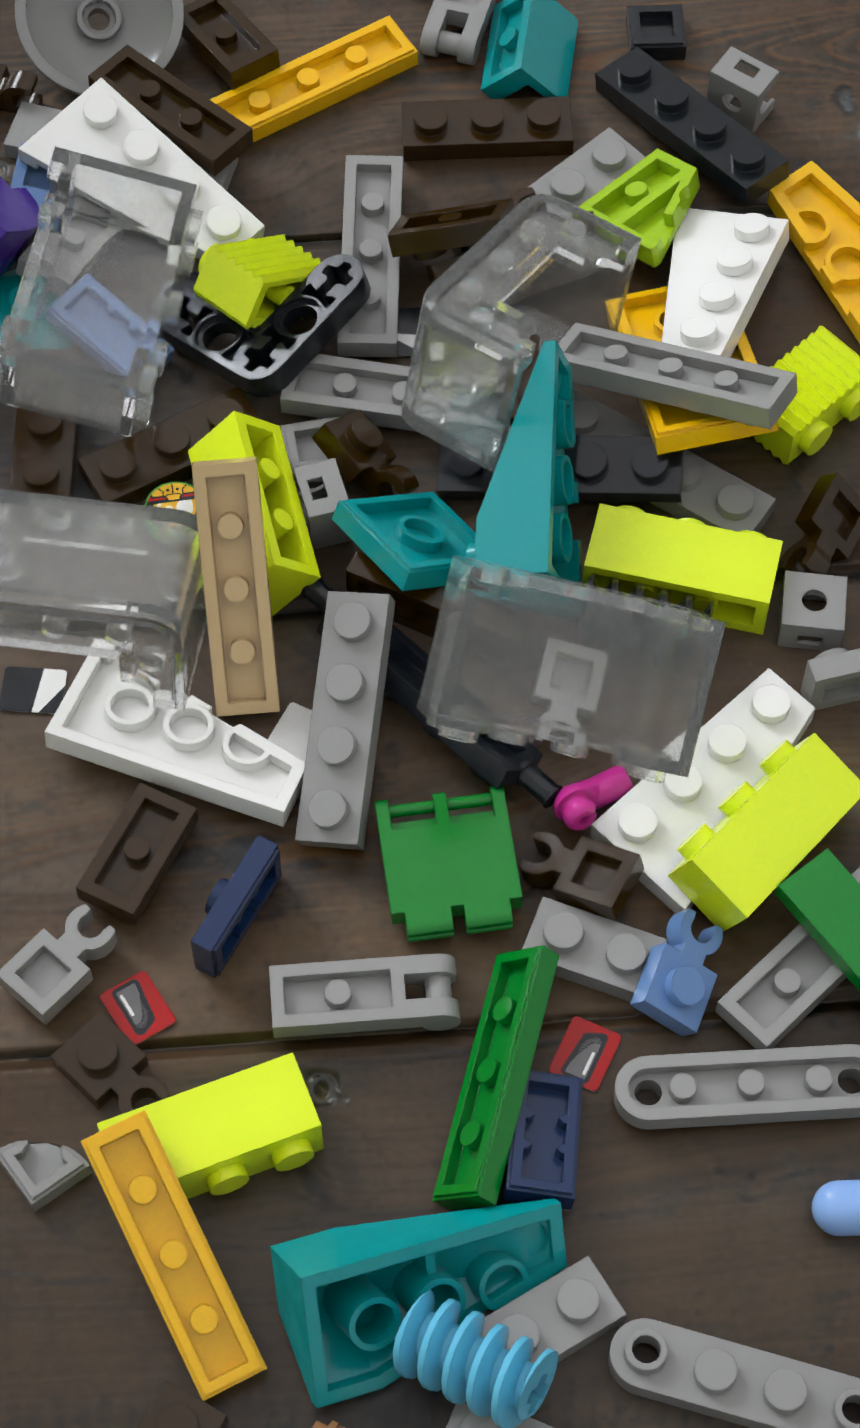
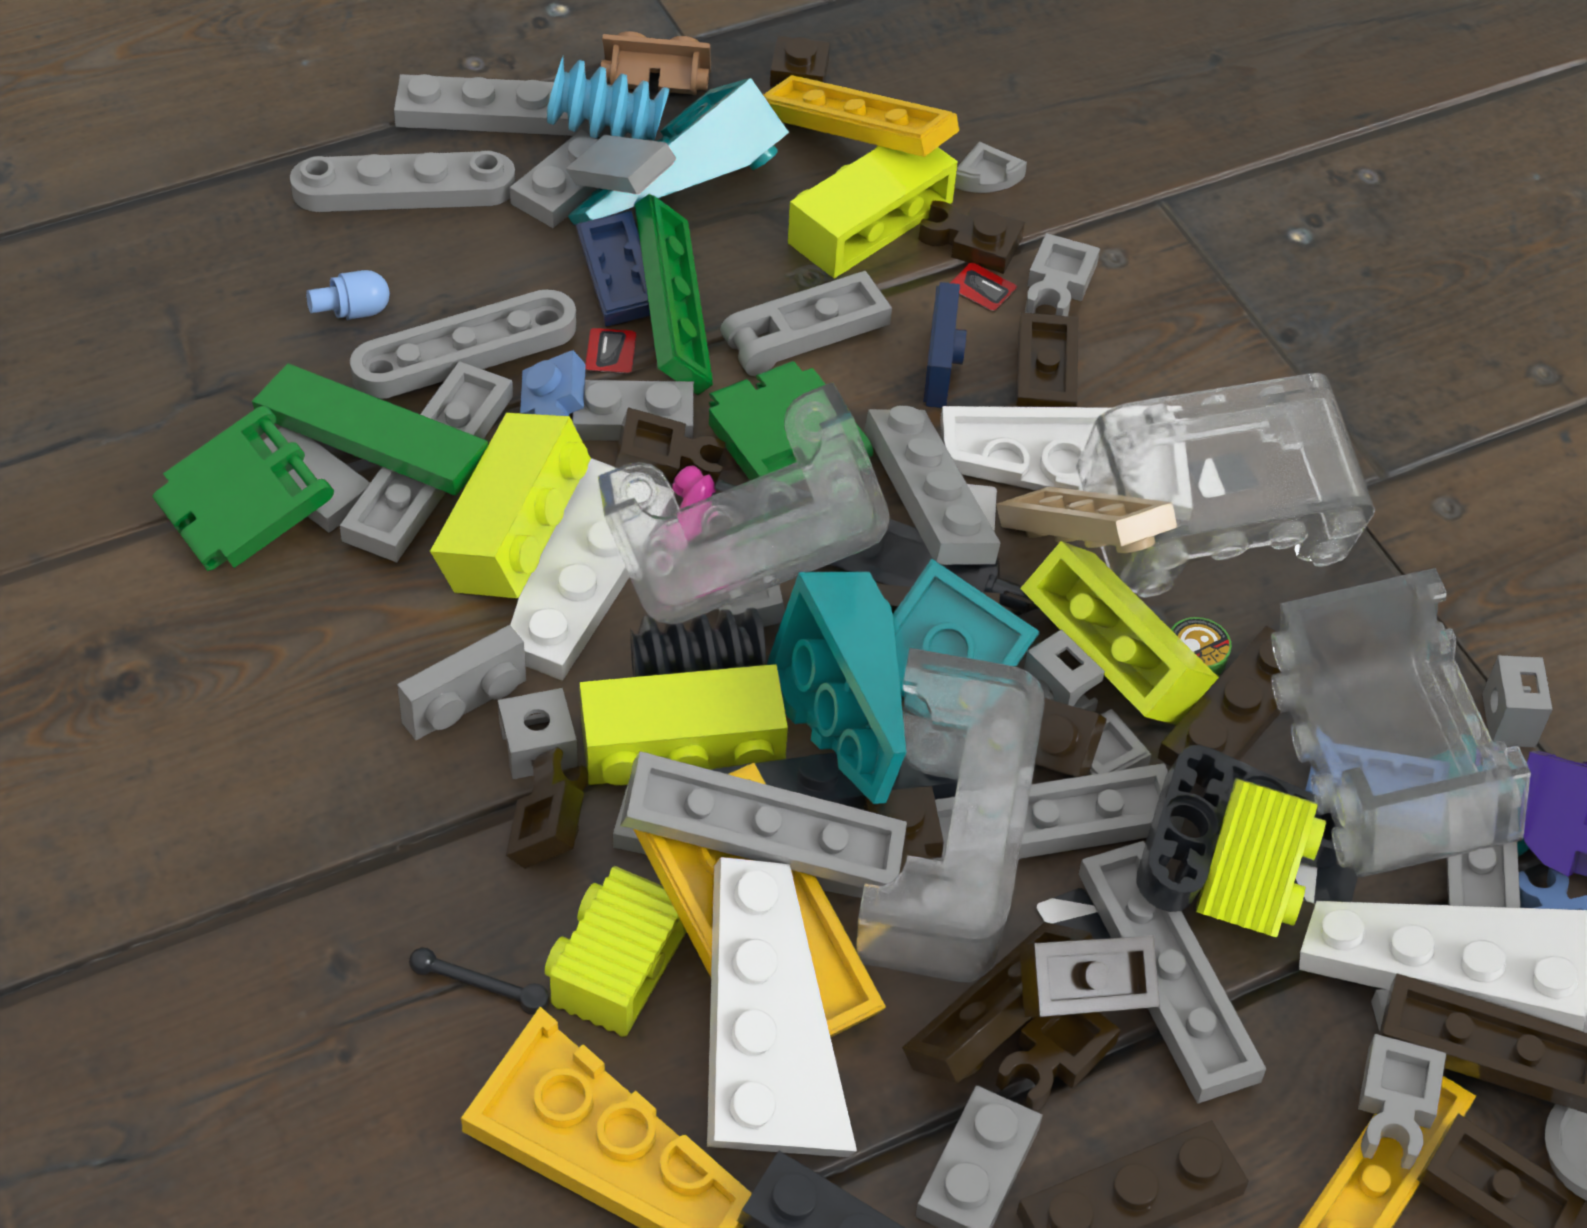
camera: 155 degrees right, 10 degrees down
(267, 99) = (1404, 1092): none -> light grey plate
(501, 1234) = (621, 164): none -> light grey tile
(649, 202) = (892, 1121): lime wing -> none

